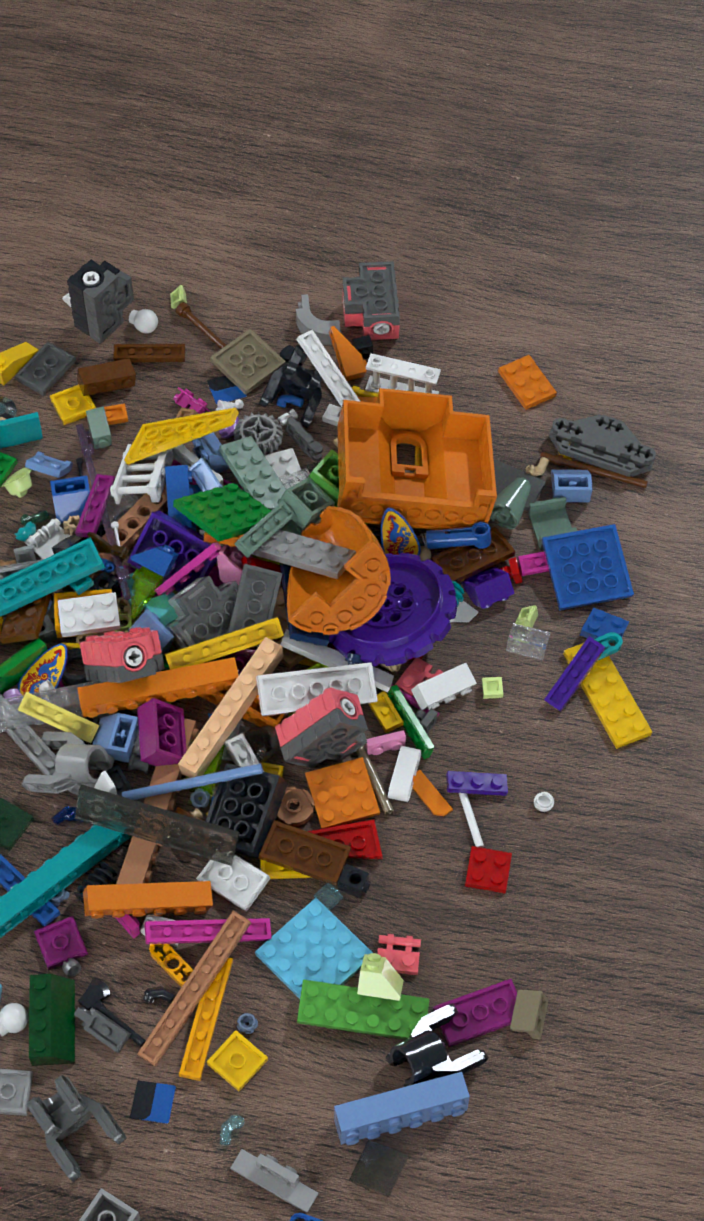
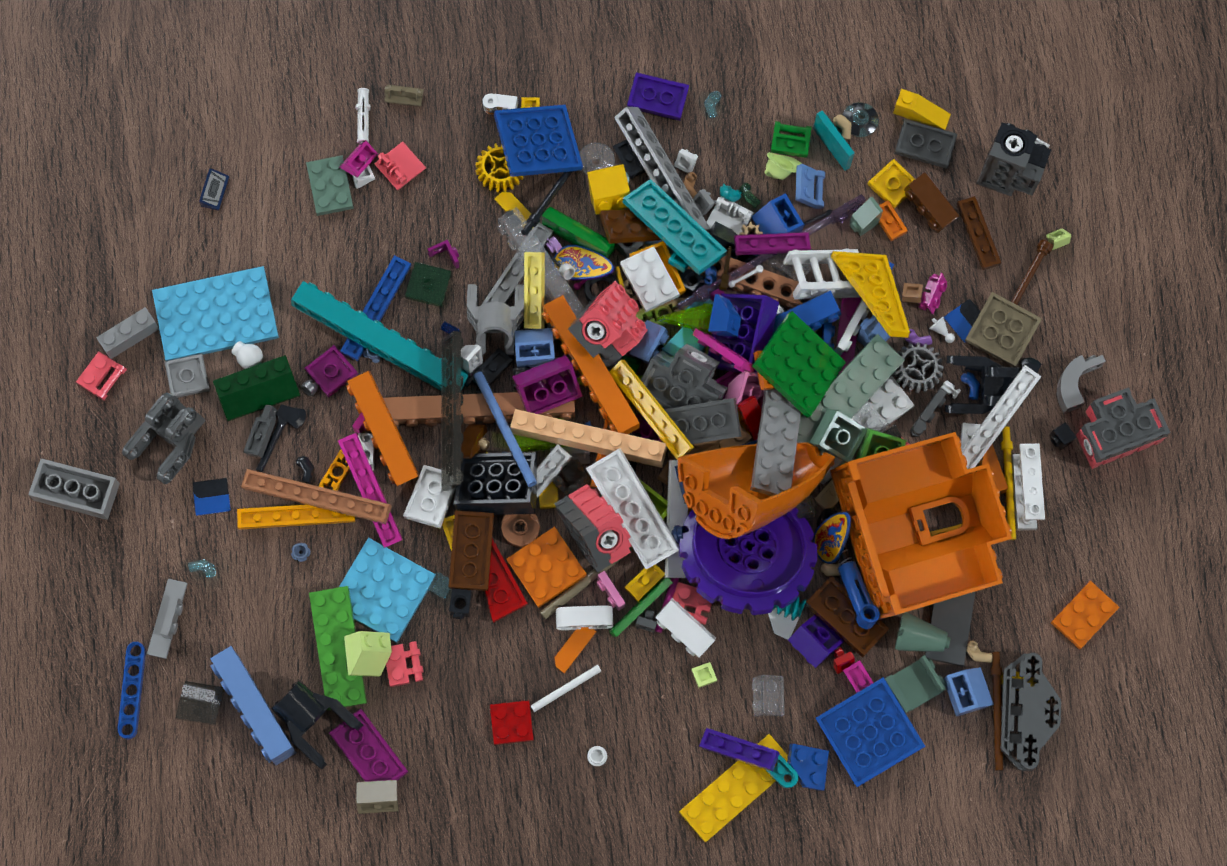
camera: 70 degrees right, 15 degrees up
(101, 876) = (390, 382): black piece -> none
(144, 320) = (1015, 214): white piece -> none
(195, 798) = (498, 443): sand blue plate -> none
(204, 475) = (839, 332): light blue tile -> none
(237, 1060) = (263, 554): yellow plate -> none
(265, 529) = (787, 405): sand green tile -> none
(348, 358) = (1039, 426): orange slope -> none
(476, 783) = (595, 687): dark purple plate -> none
(527, 616) = (796, 688): yellowish green slope -> none

